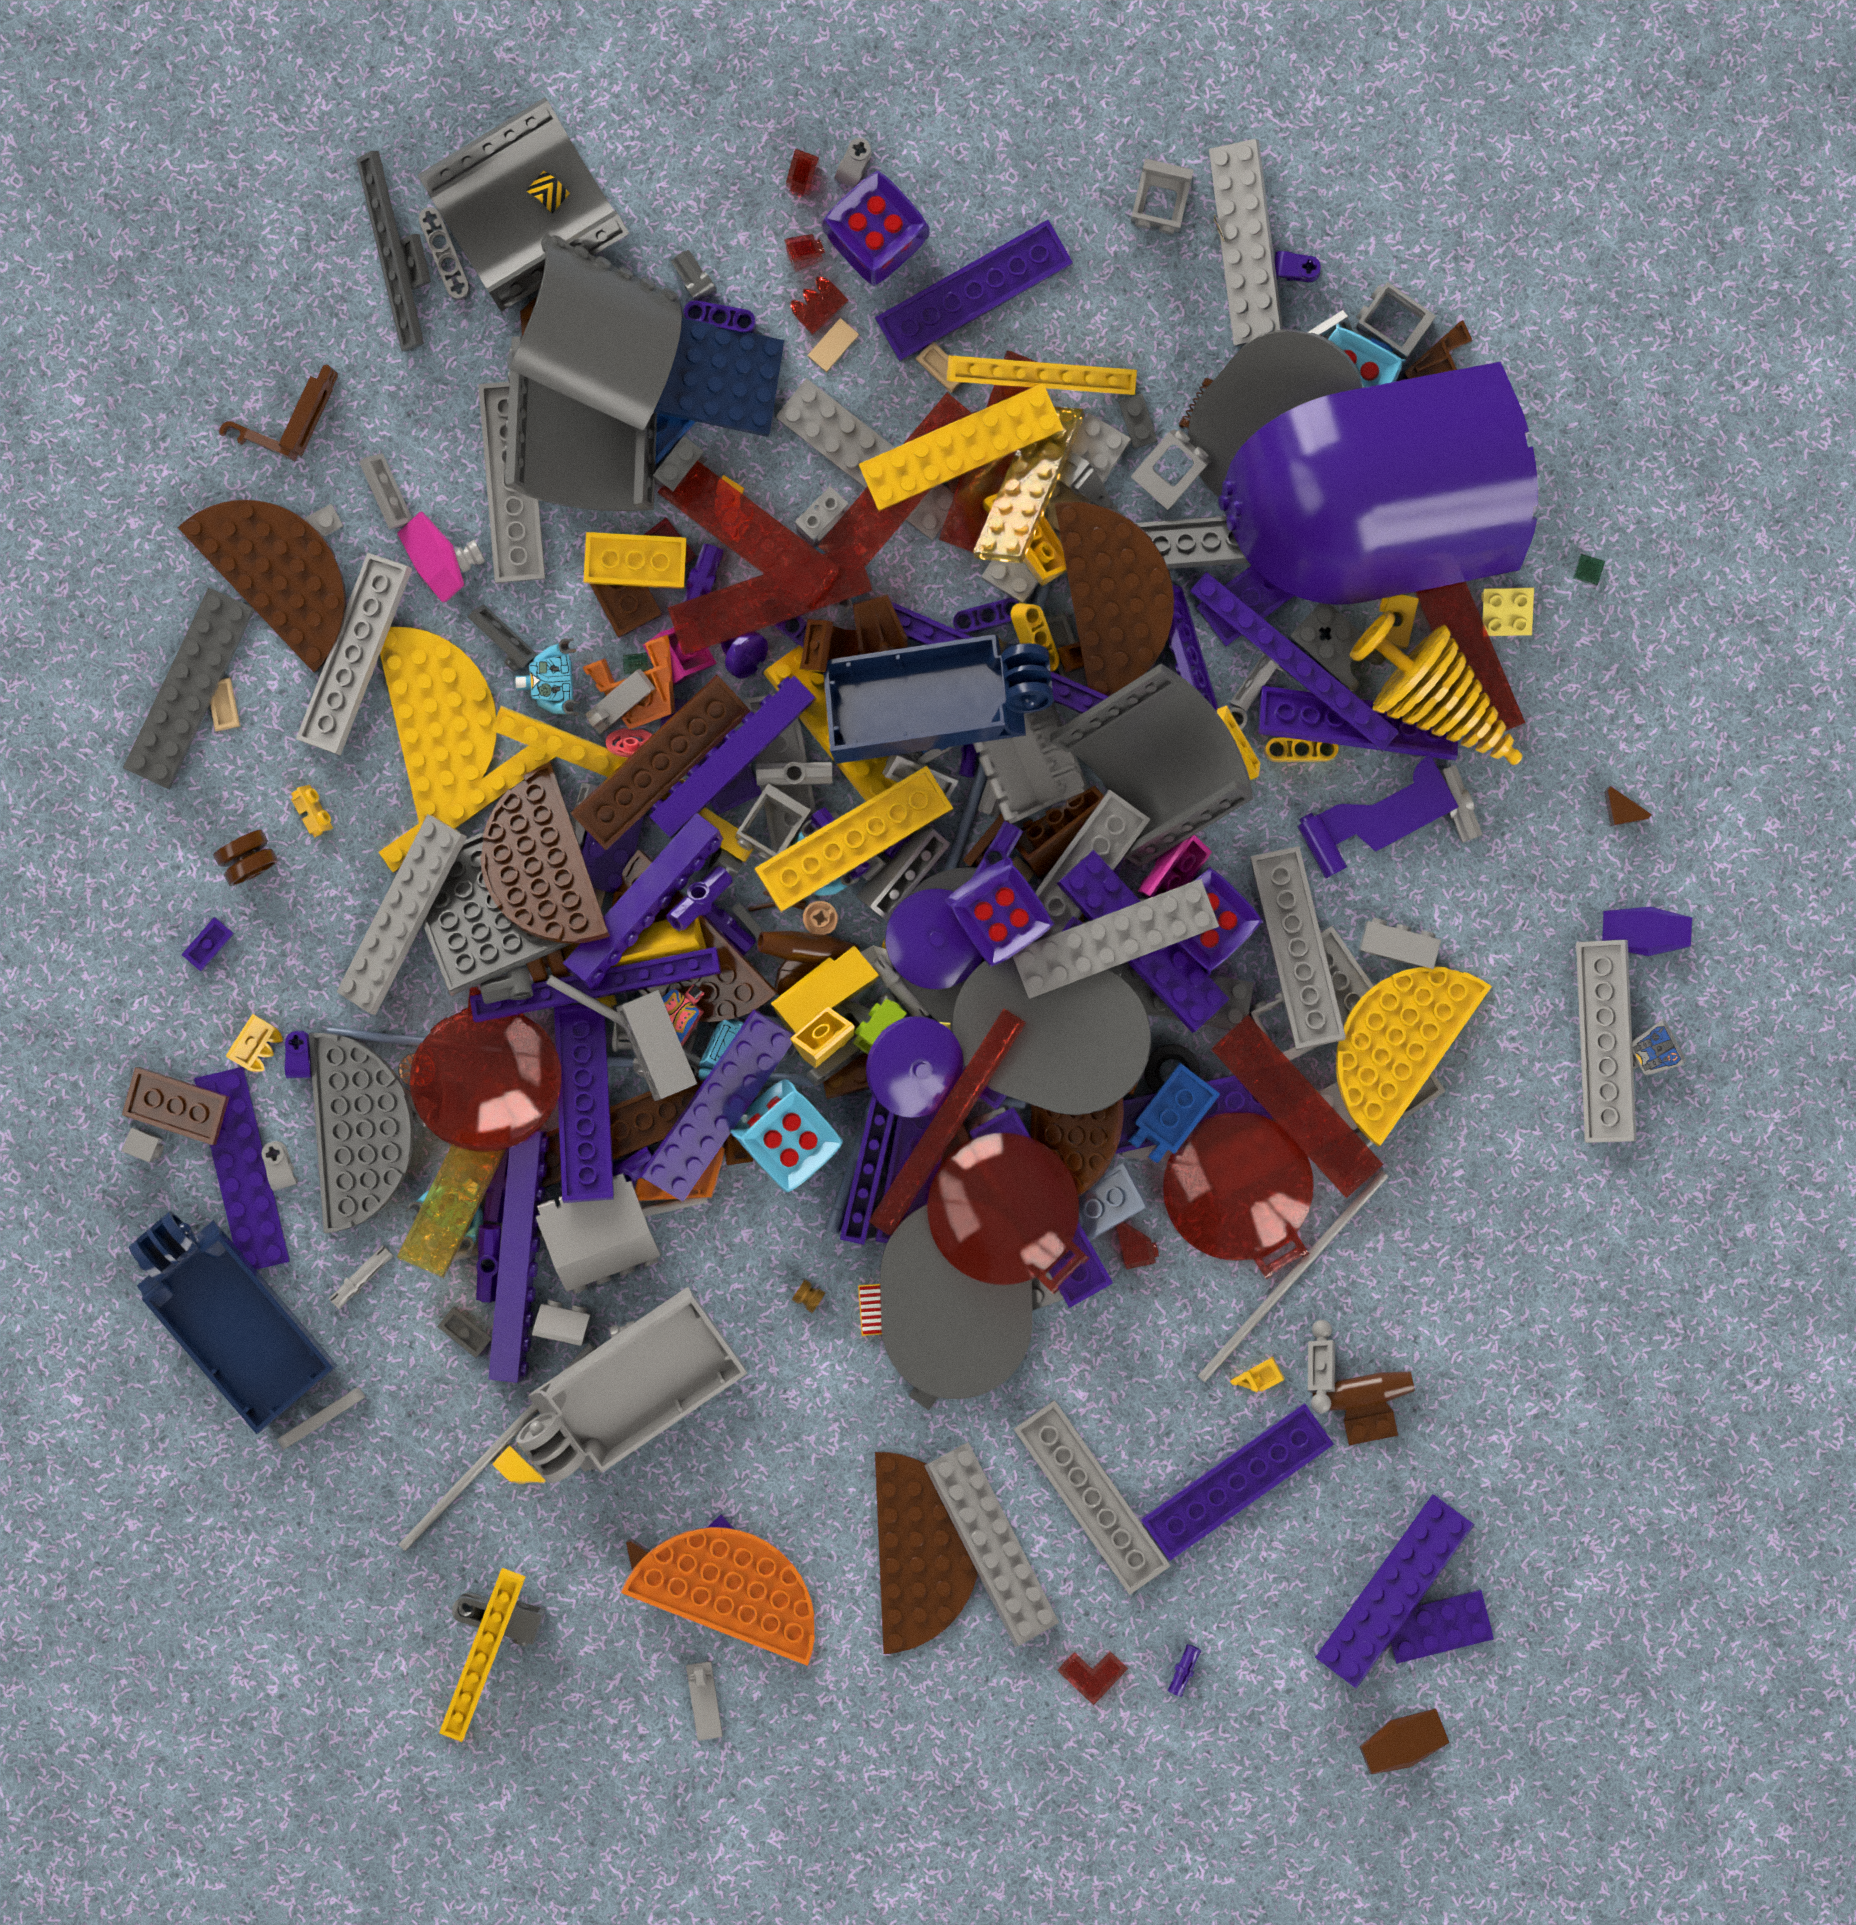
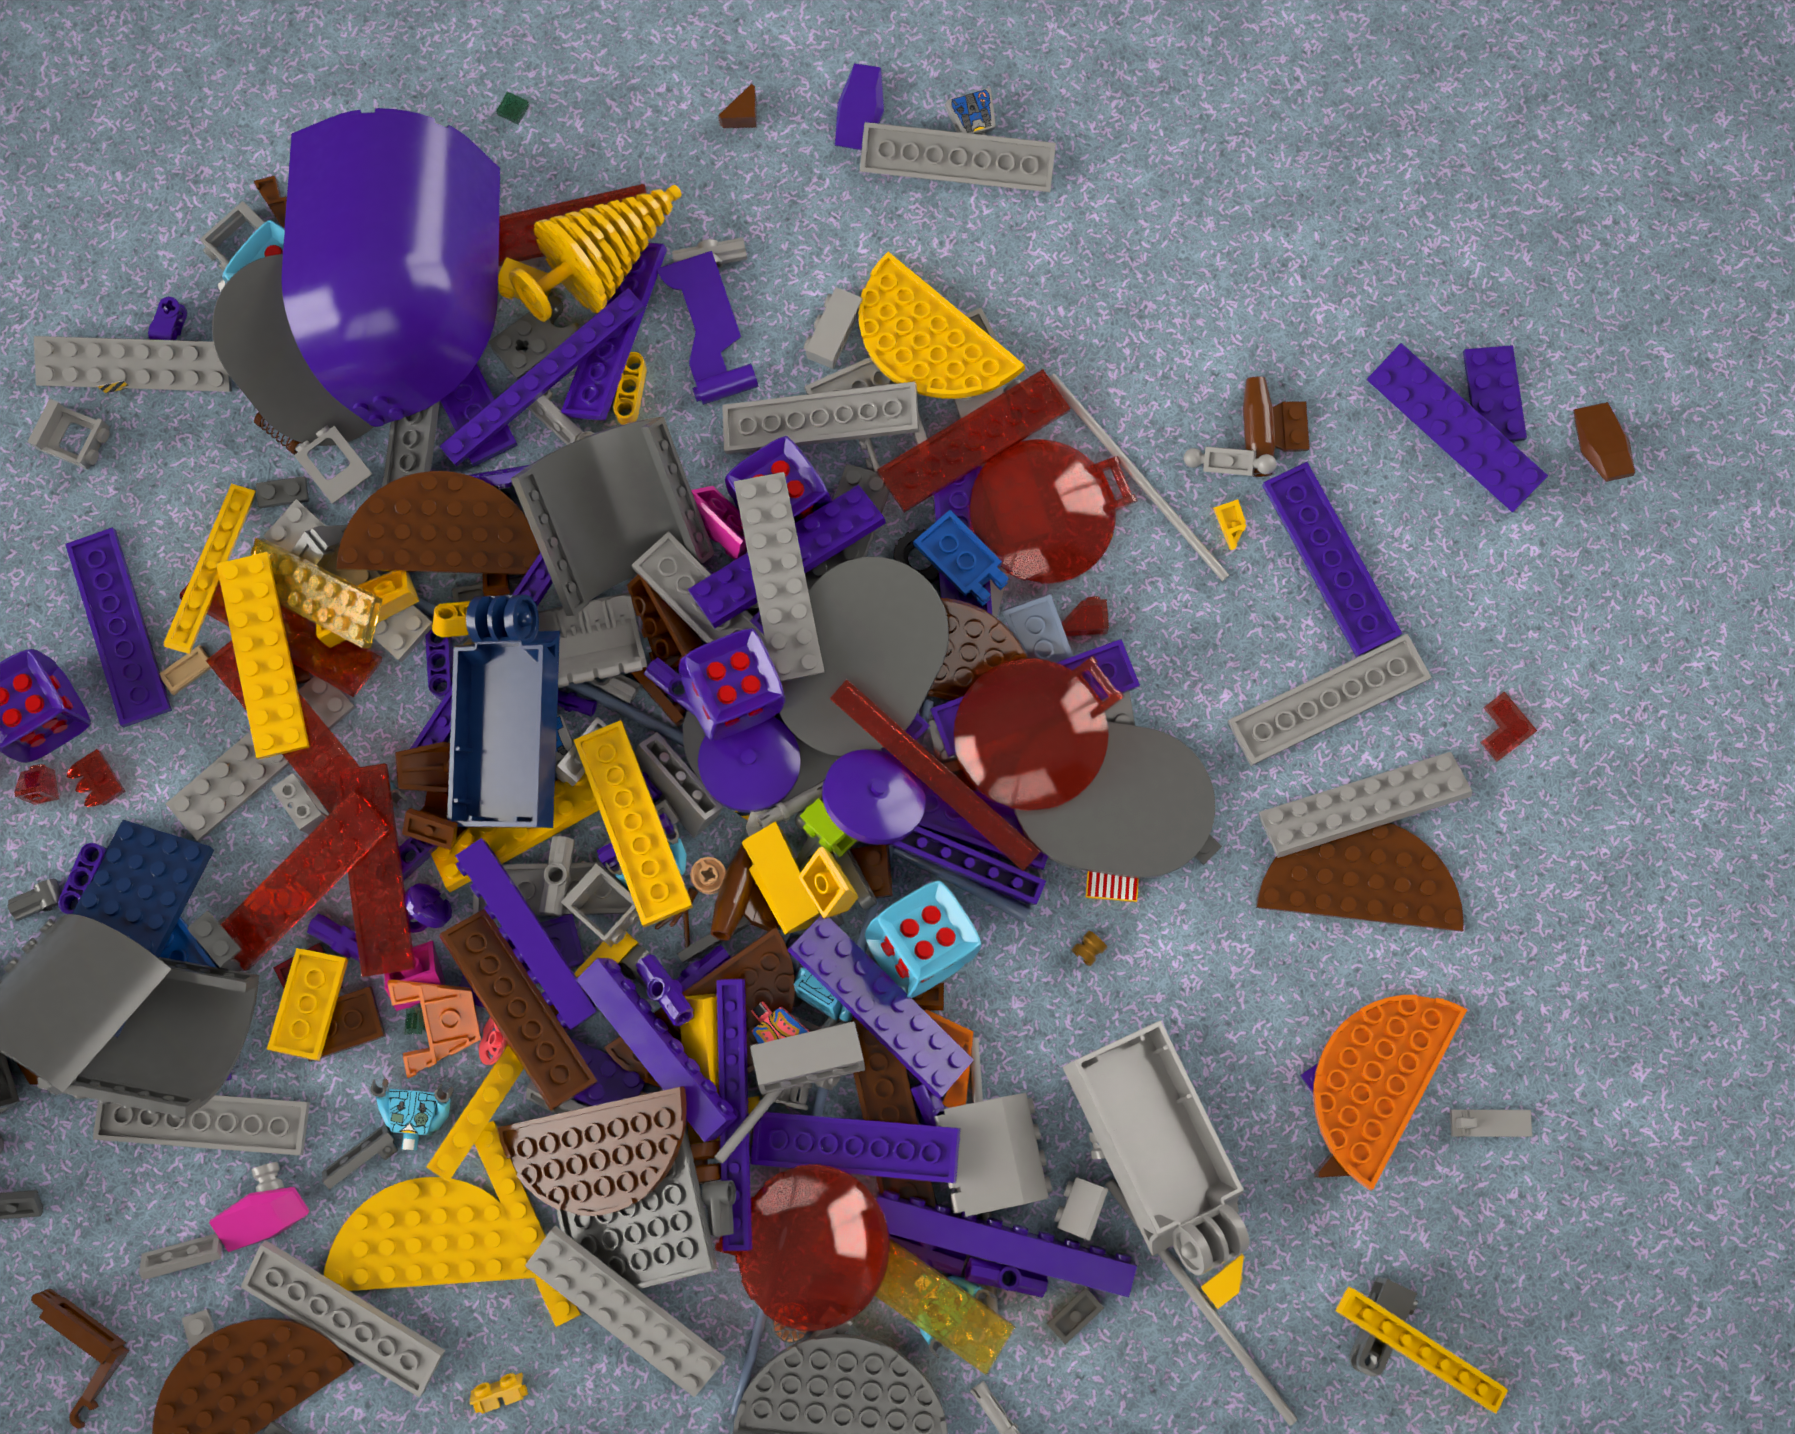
camera: 75 degrees left, 10 degrees down
(620, 701) = (448, 1043): light grey hinge -> none
(833, 345) = (139, 772): tan tile -> none
(1184, 1670) = (1511, 637): dark purple pin -> none
(1508, 611) = (535, 183): light yellow hinge -> none

